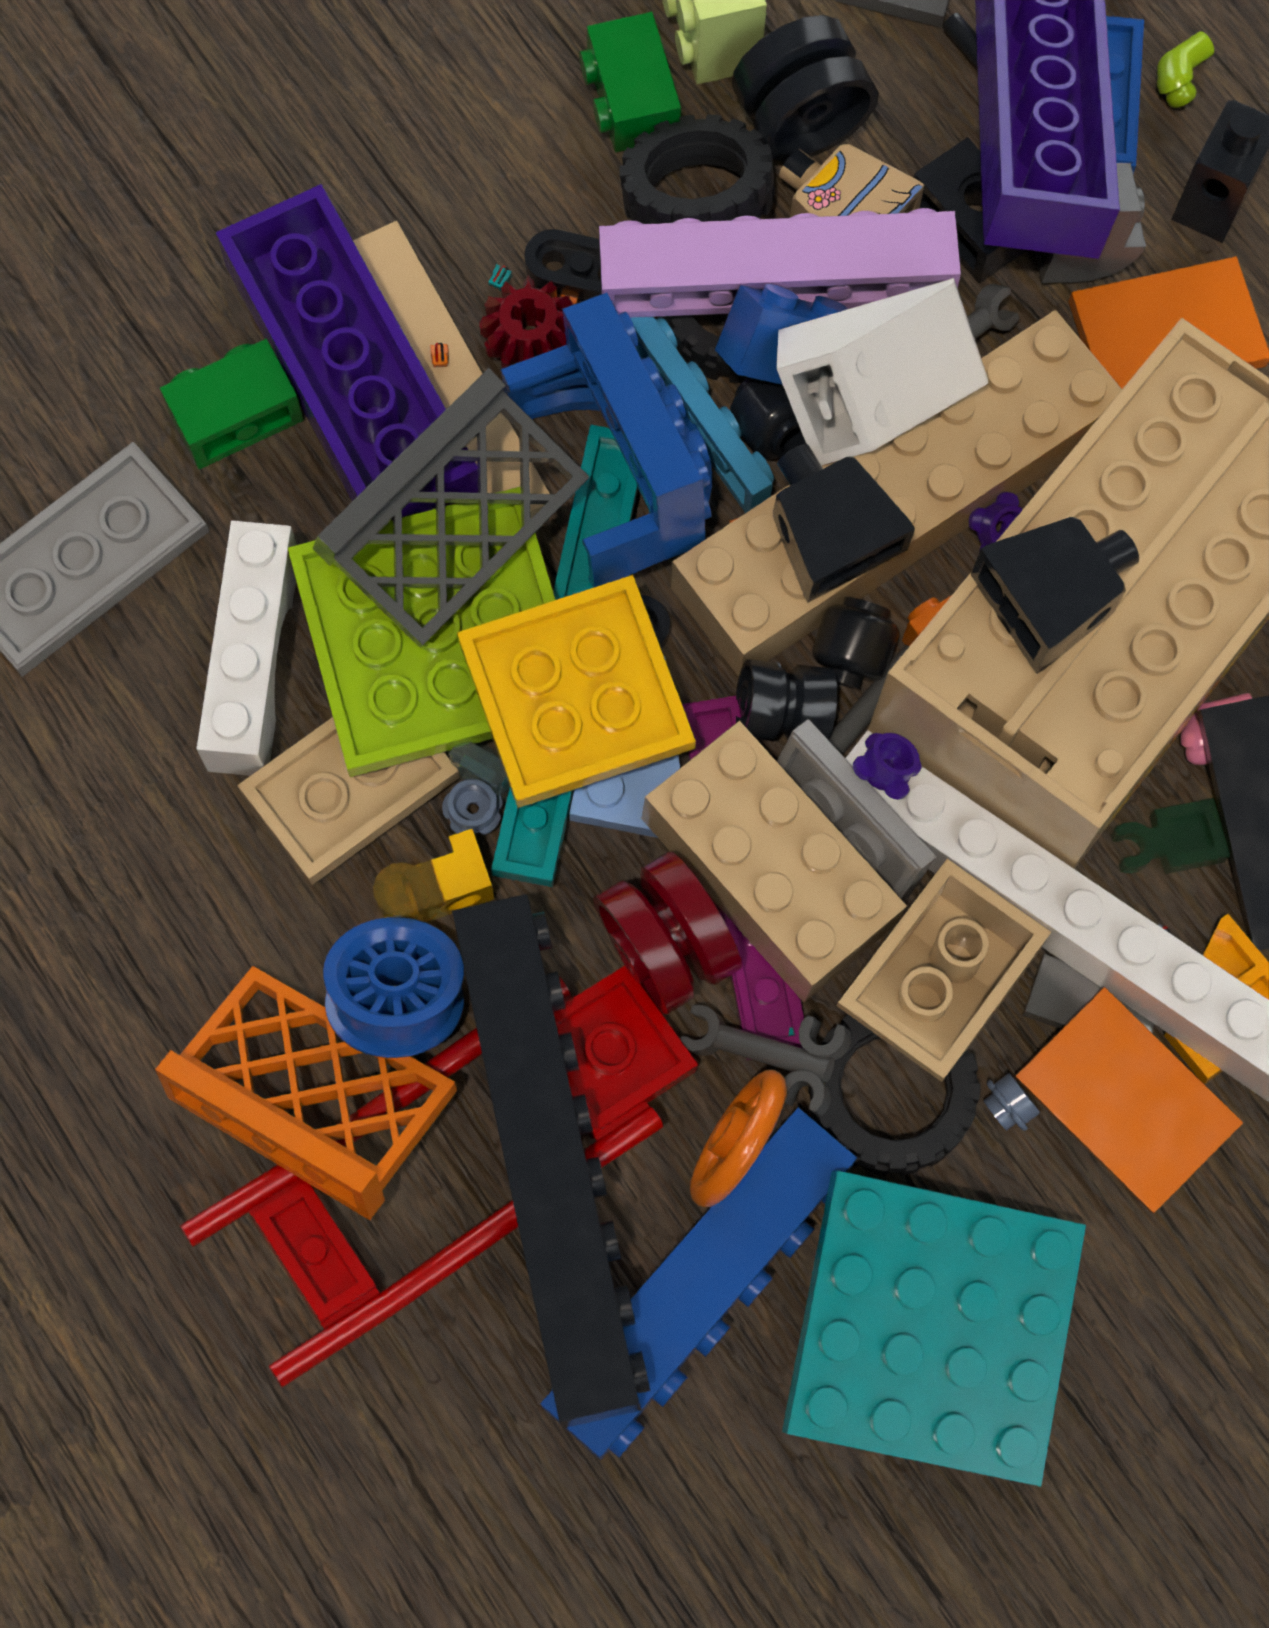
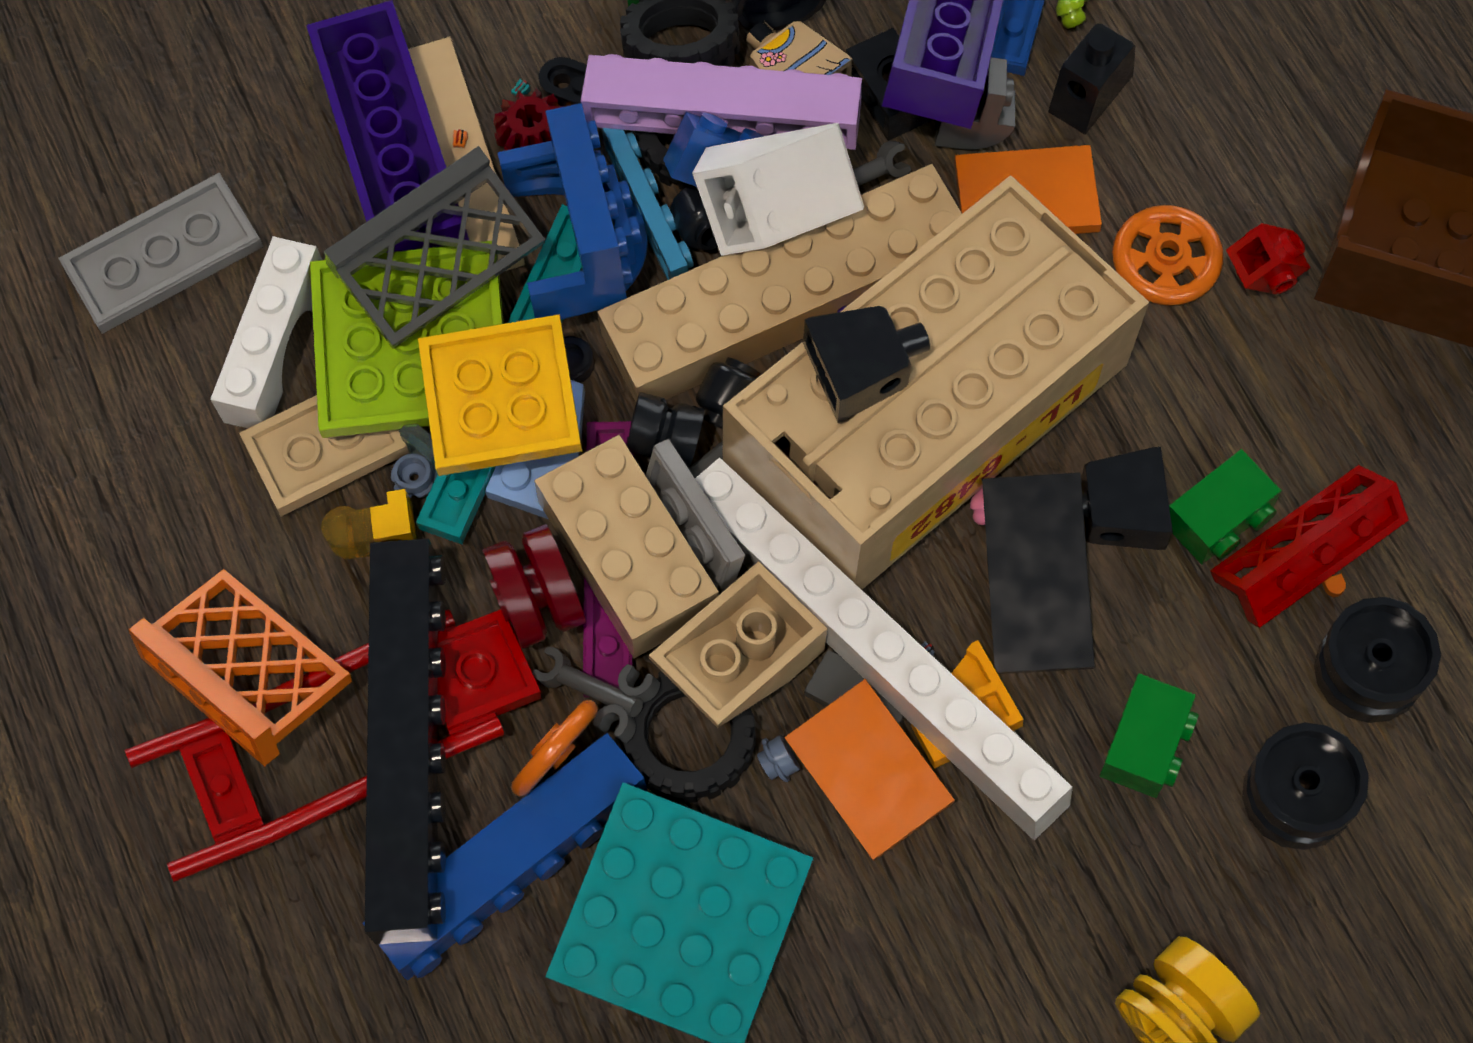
camera: 15 degrees right, 5 degrees down
(231, 403) = (296, 154): green brick -> none
(393, 987) = (319, 597): blue wheel -> none
(835, 521) = (722, 296): black torso -> none
(888, 763) = (724, 481): dark purple plate -> none
(1181, 836) = (955, 576): clear green plate -> none

